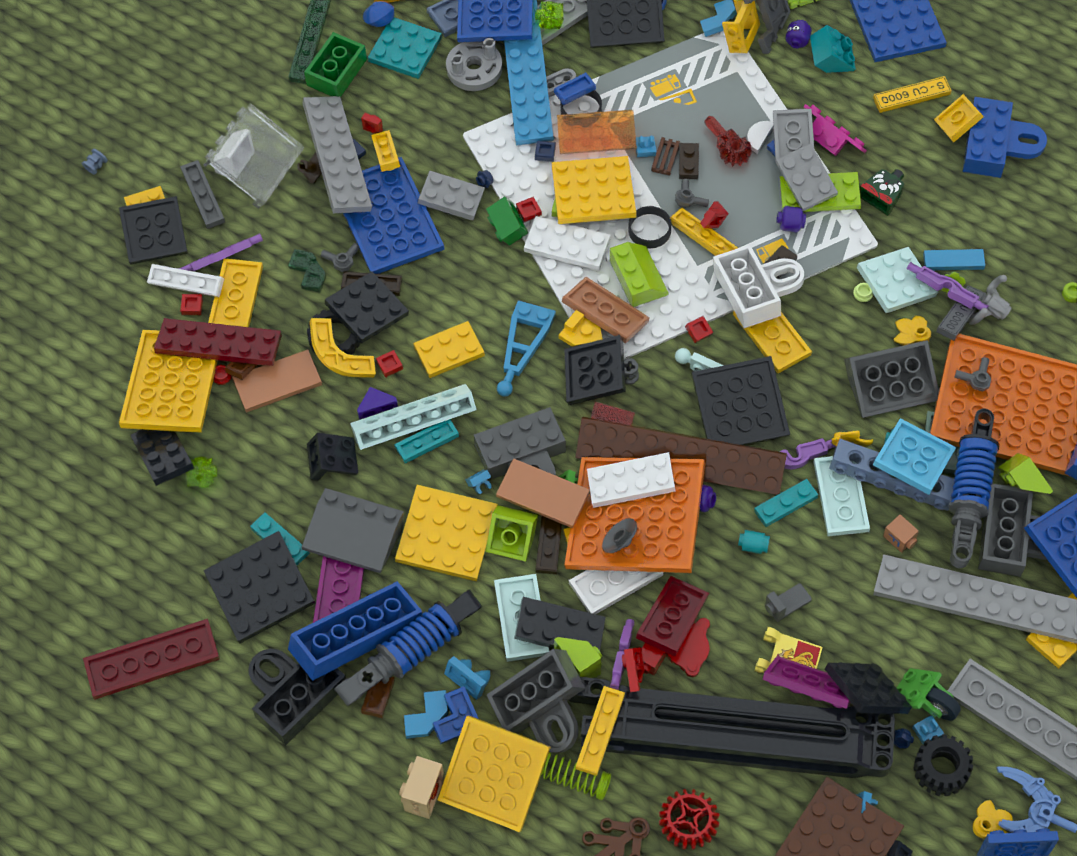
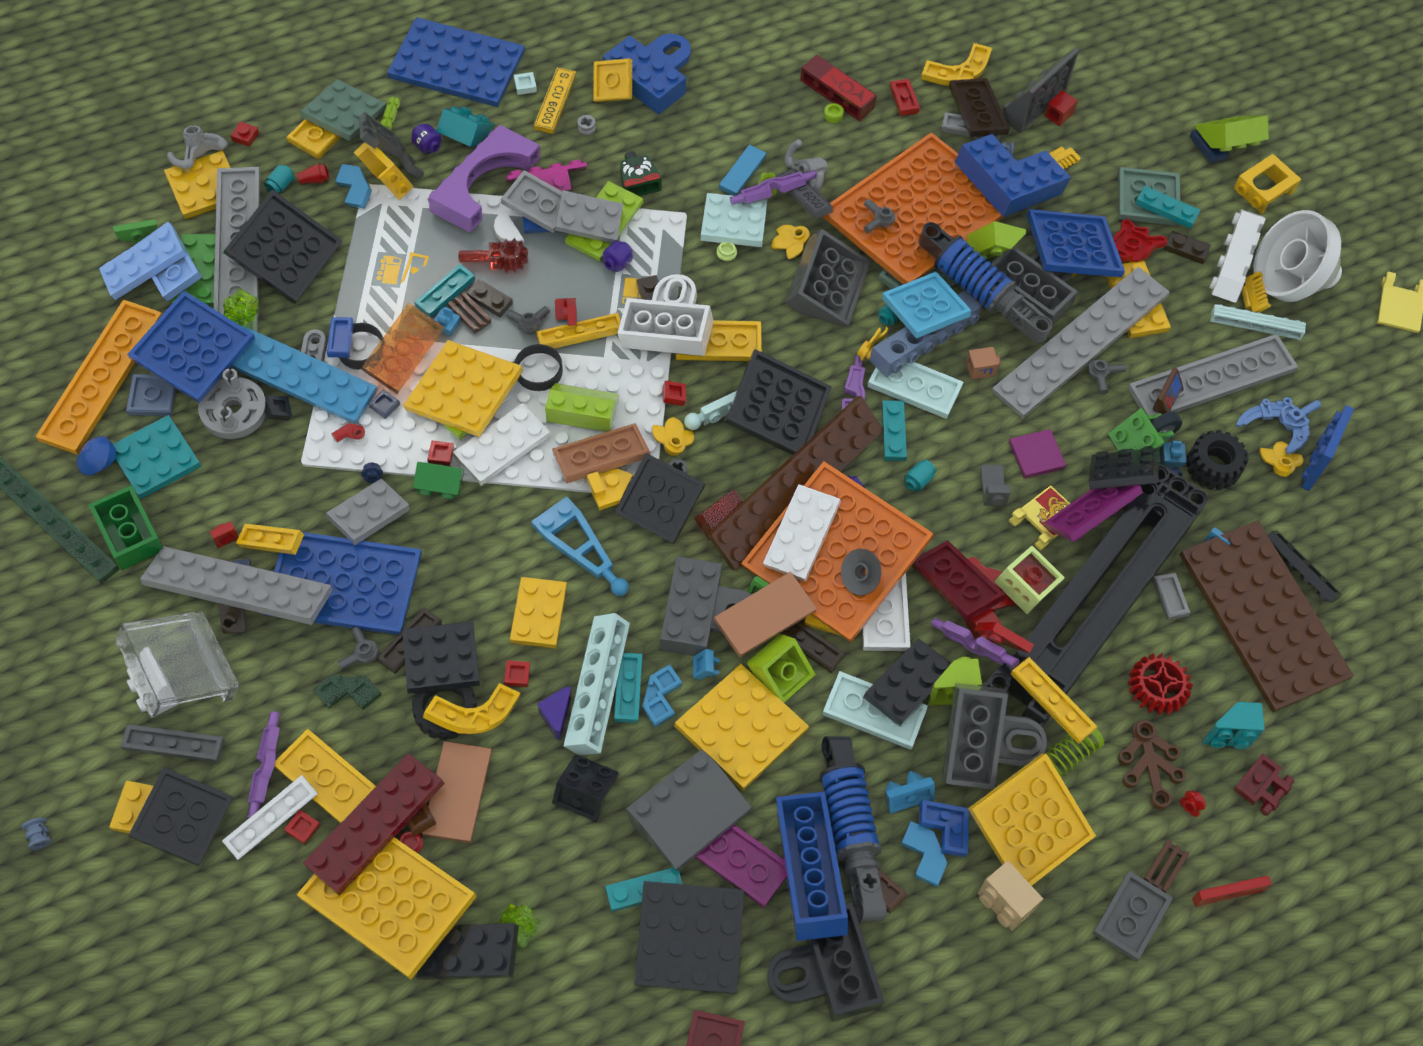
camera: 65 degrees left, 0 degrees up
(427, 466) = (654, 703): none -> dark azure tile
(494, 91) = (278, 407): none -> black plate
(506, 144) = (350, 431): none -> red arm
(662, 348) = (673, 436): none -> yellow plate
(671, 128) = (445, 290): none -> teal plate
(710, 668) = (1029, 579): none -> yellowish green piece
(783, 792) = (1171, 596): none -> light grey tile
(828, 85) = (498, 150): none -> medium lavender arch
(845, 621) = (1037, 453): none -> magenta tile
(906, 123) = (583, 125): none -> light grey bush
(909, 64) = (525, 83): none -> light aqua plate
(967, 629) = (1100, 370): none -> dark grey piece
(980, 691) = (1169, 393): none -> reddish brown slope

